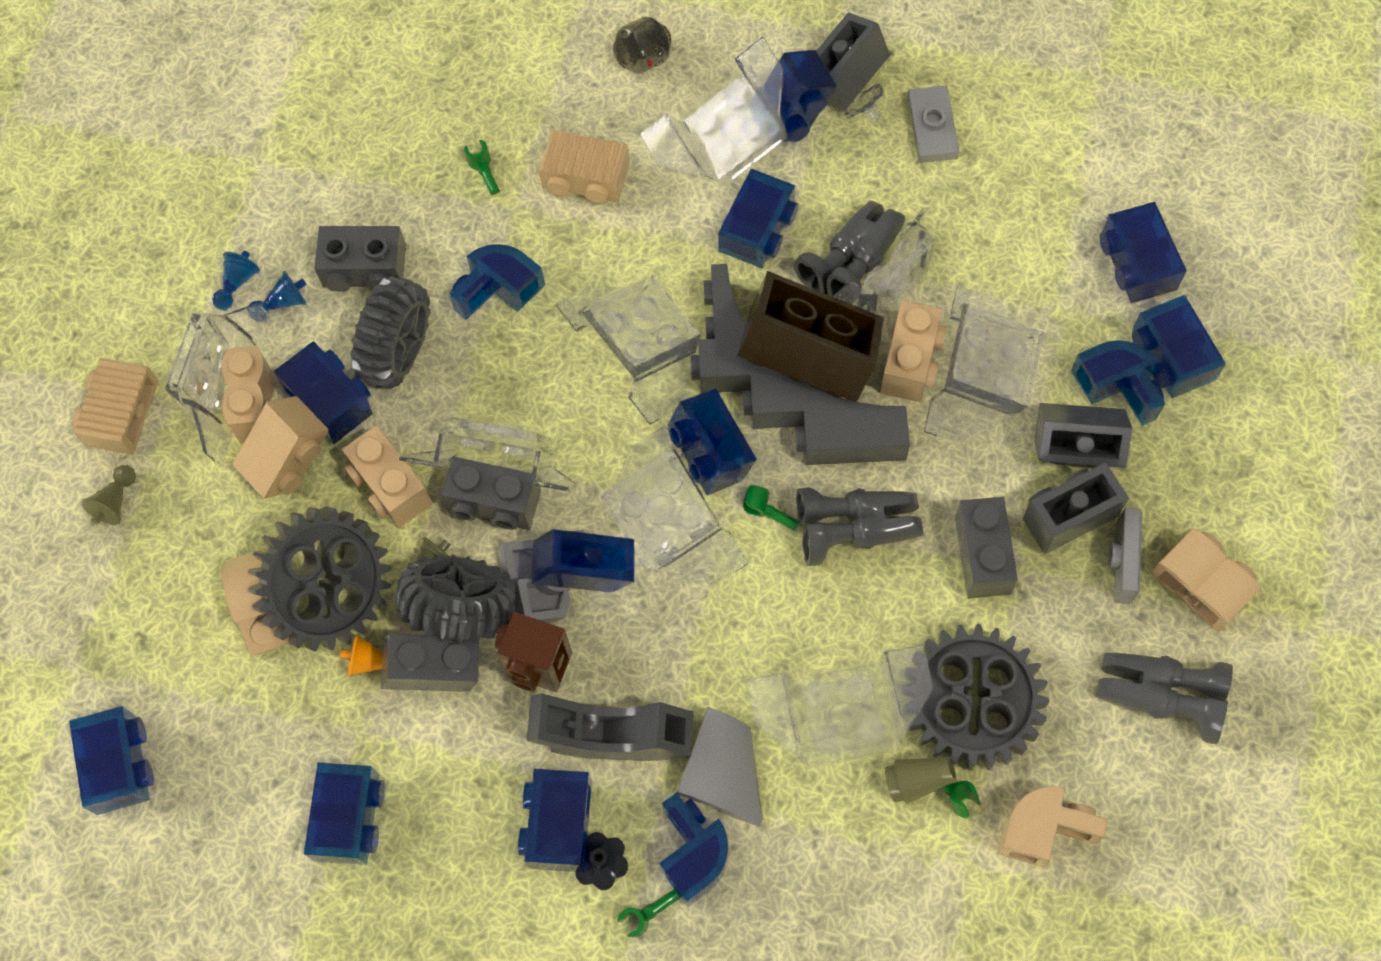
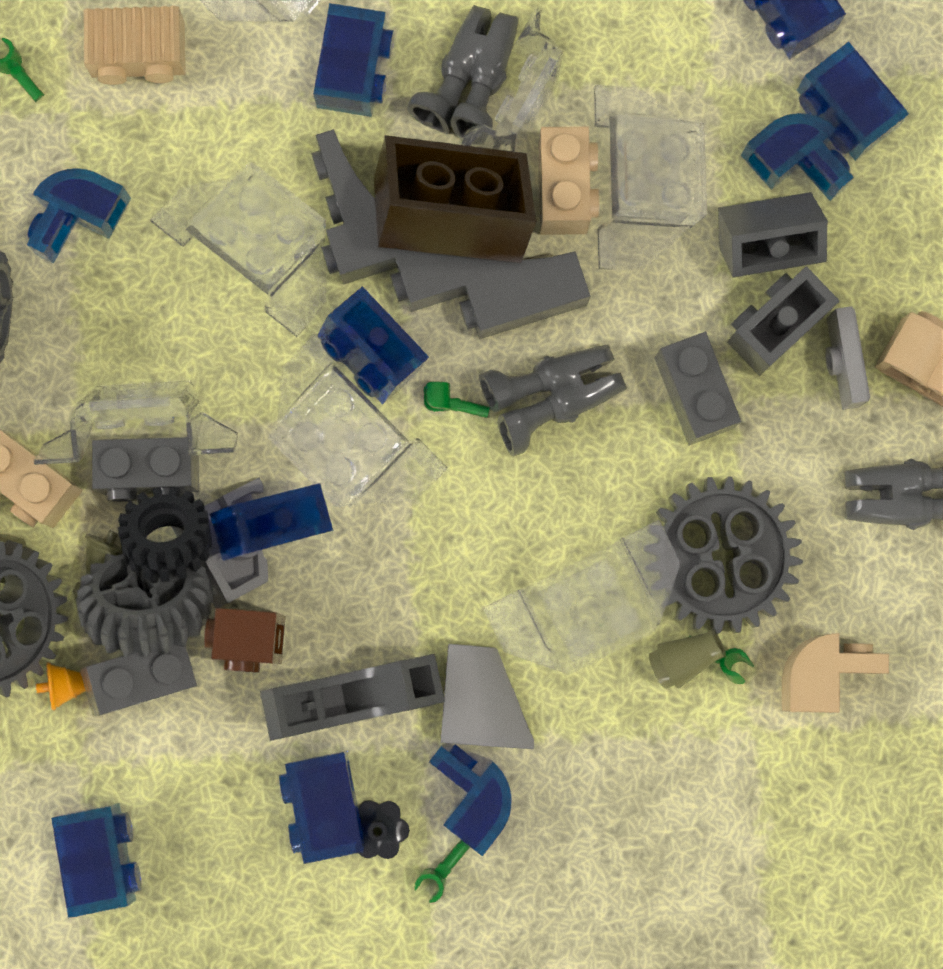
camera: 25 degrees left, 15 degrees up
(504, 559) = (171, 555): none -> black tyre

